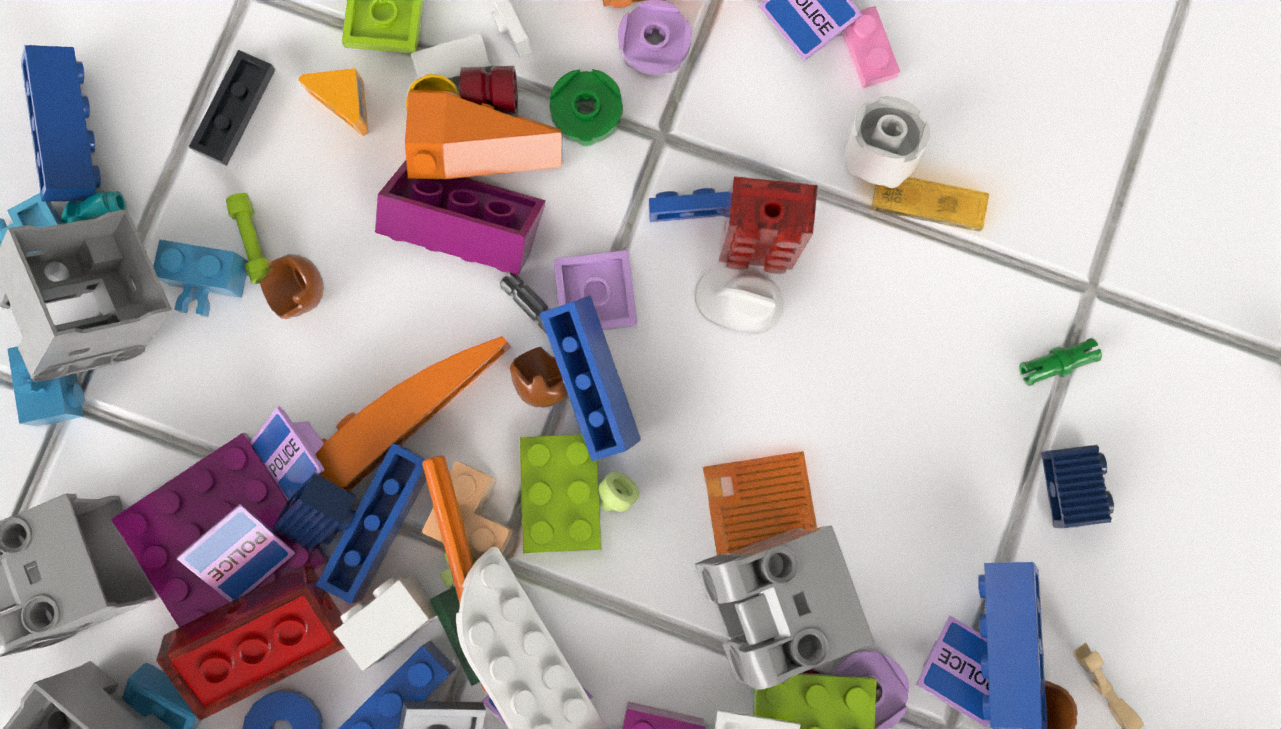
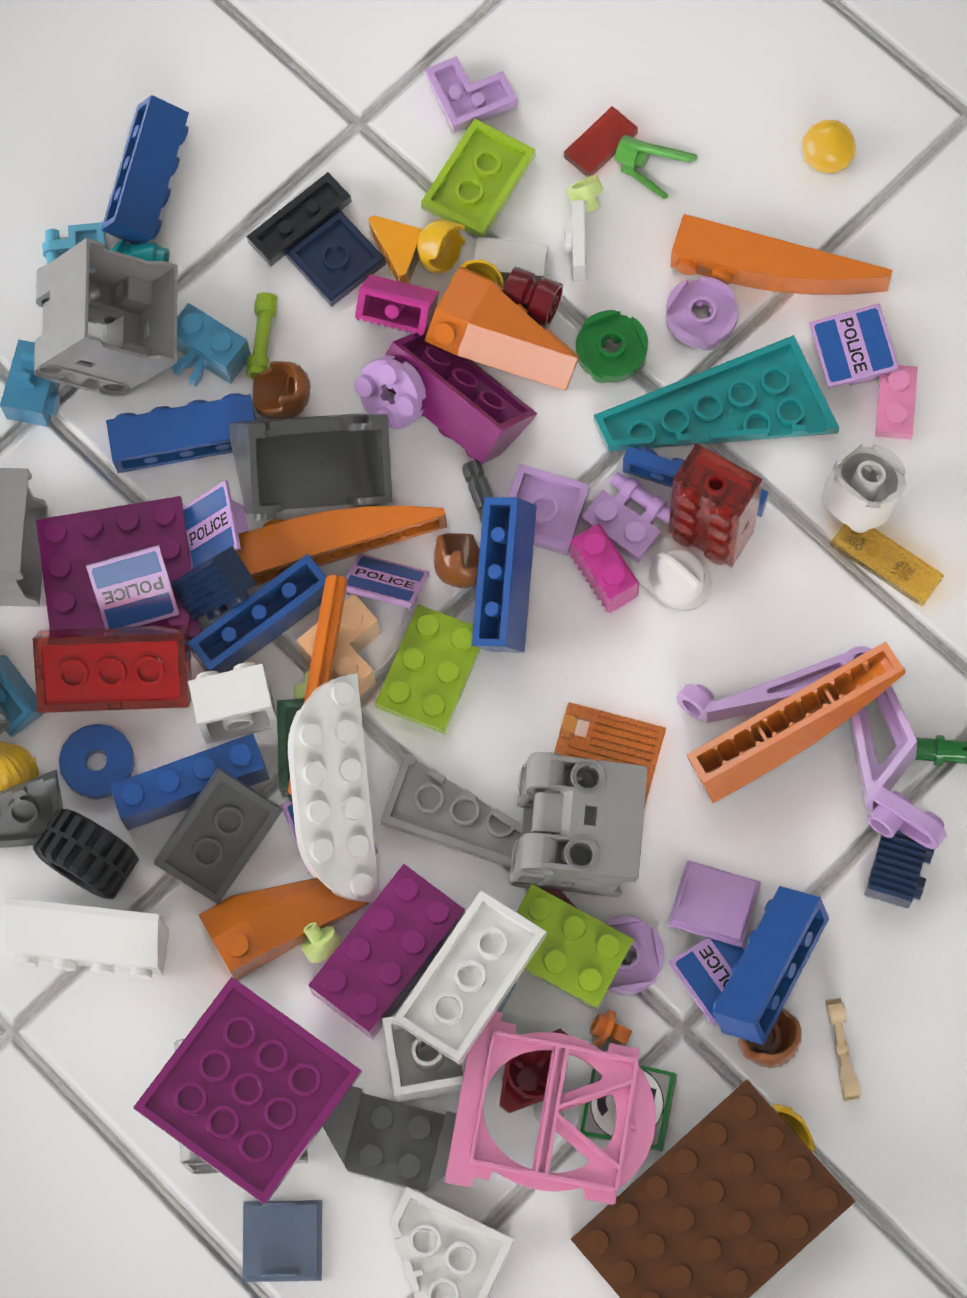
camera: 30 degrees right, 10 degrees down
(214, 369) = (176, 433): none -> blue brick
(285, 131) = (336, 258): none -> dark blue tile
(352, 347) = (312, 462): none -> dark grey windscreen
(364, 153) = (396, 304): none -> dark pink brick
(379, 77) = (440, 245): none -> yellow hair
(404, 261) = (387, 374): none -> lavender plate
(478, 430) = (385, 581): none -> piece
(617, 492) = (481, 687): yellowish green tile -> none
(642, 630) = (446, 814): none -> light grey wing
(675, 275) = (626, 529): none -> lavender plate
(678, 325) = (604, 568): none -> dark pink brick
(728, 107) = (740, 400): none -> teal wing
(926, 602) = (714, 903): none -> lavender piece
(931, 398) = (793, 723): none -> orange slope
(959, 328) = (888, 809): none -> lavender piece

